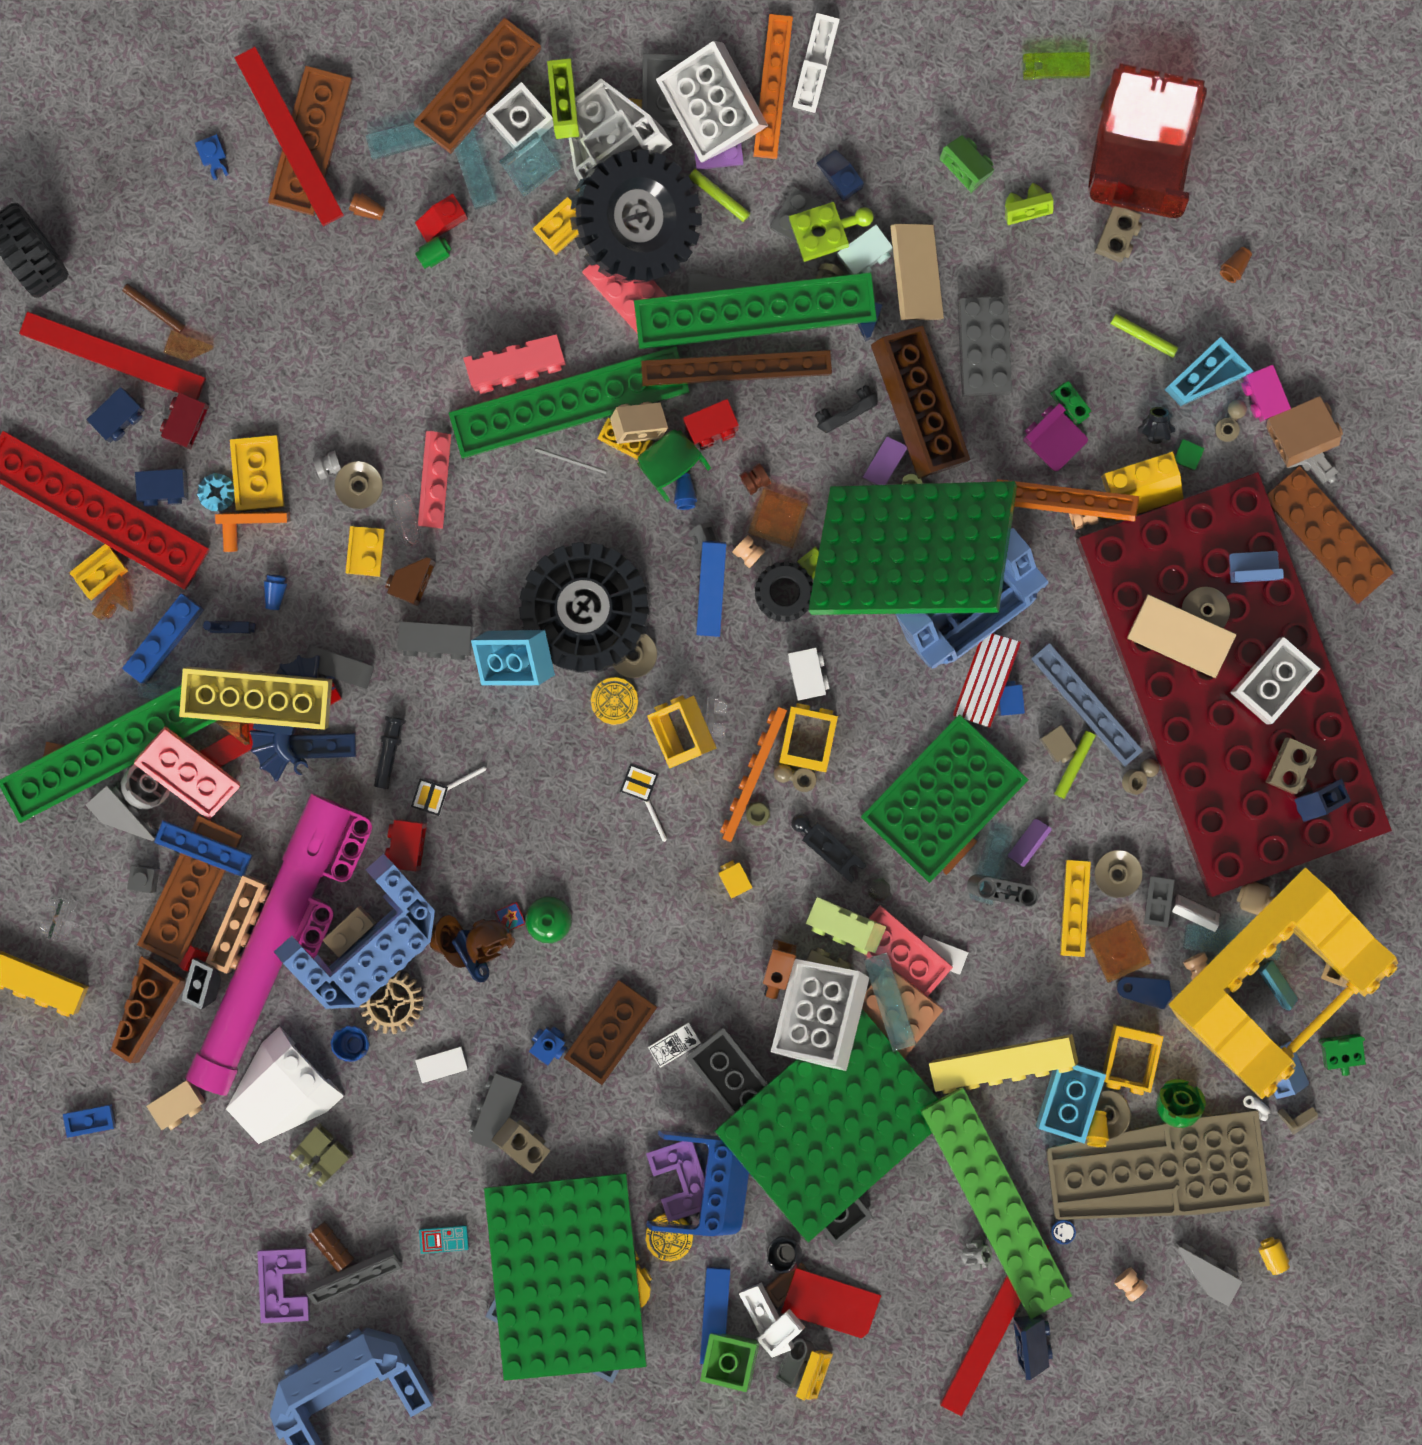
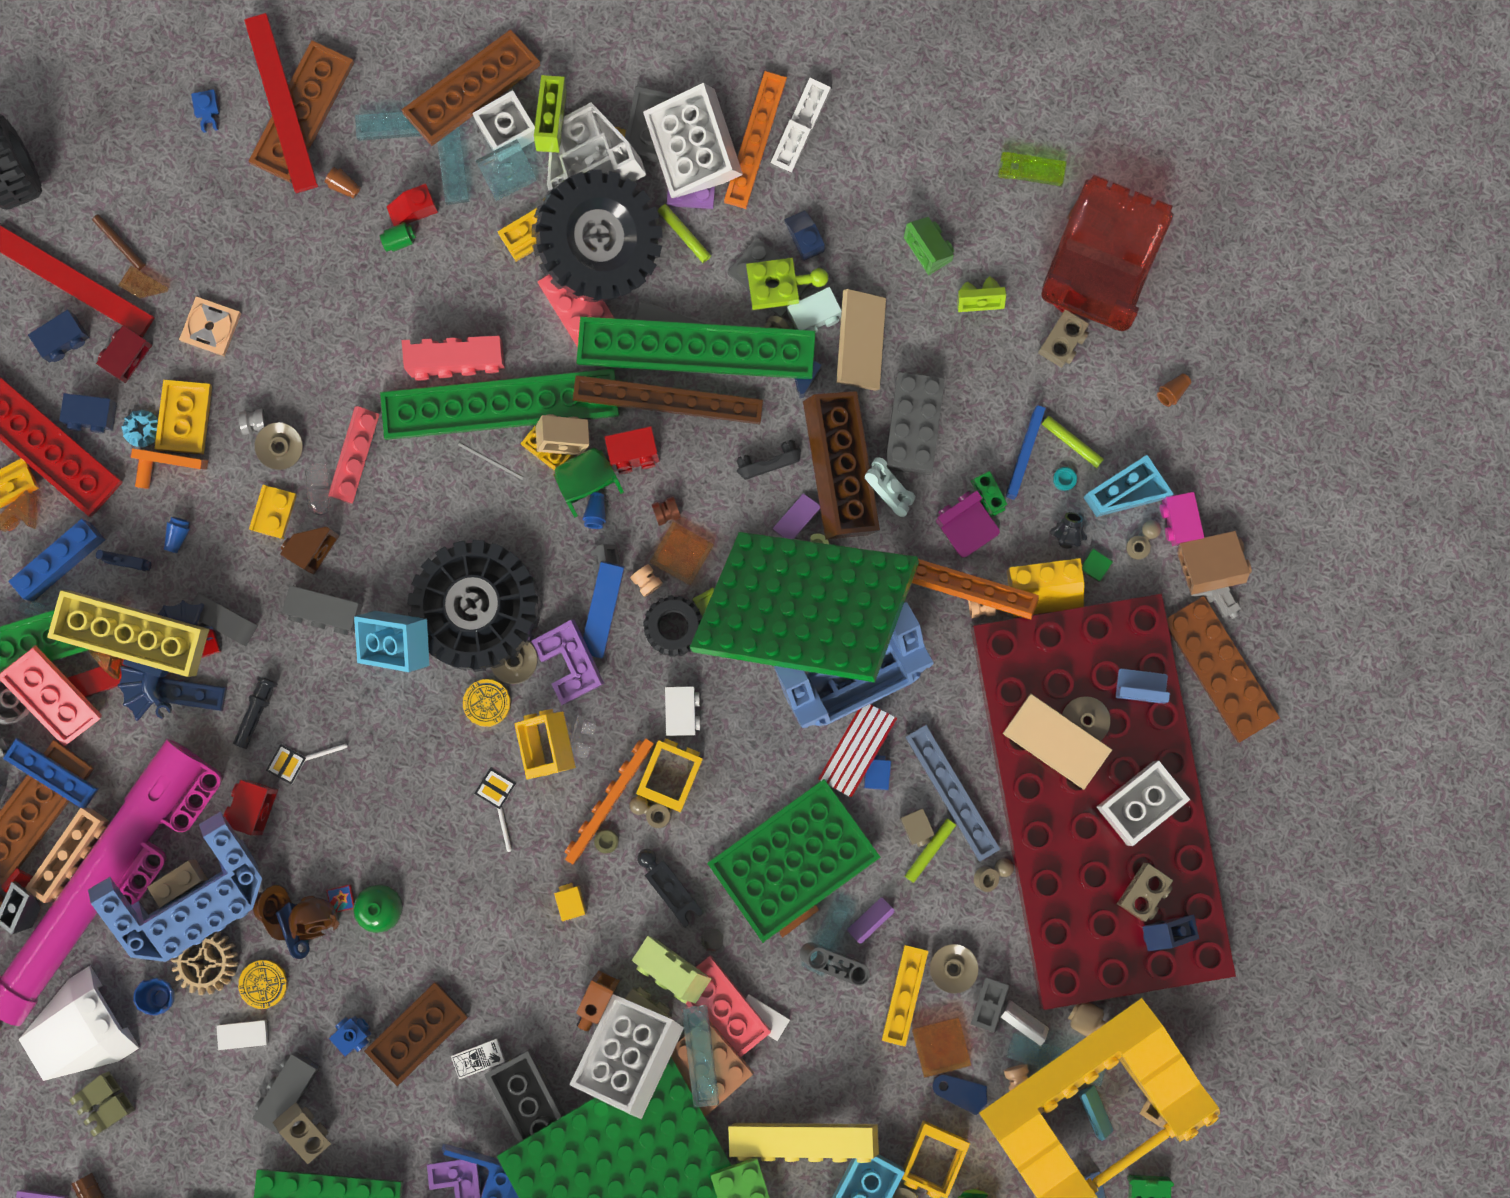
camera: 10 degrees right, 5 degrees down
(274, 385) = (222, 331): none -> light nougat piece
(451, 1012) = (263, 984): none -> yellow tile
(705, 653) = (584, 672): none -> medium lavender plate
(972, 415) = (889, 487): none -> light aqua plate
(1099, 355) = (1025, 452): none -> blue tile
(1143, 374) = (1065, 478): none -> teal tile

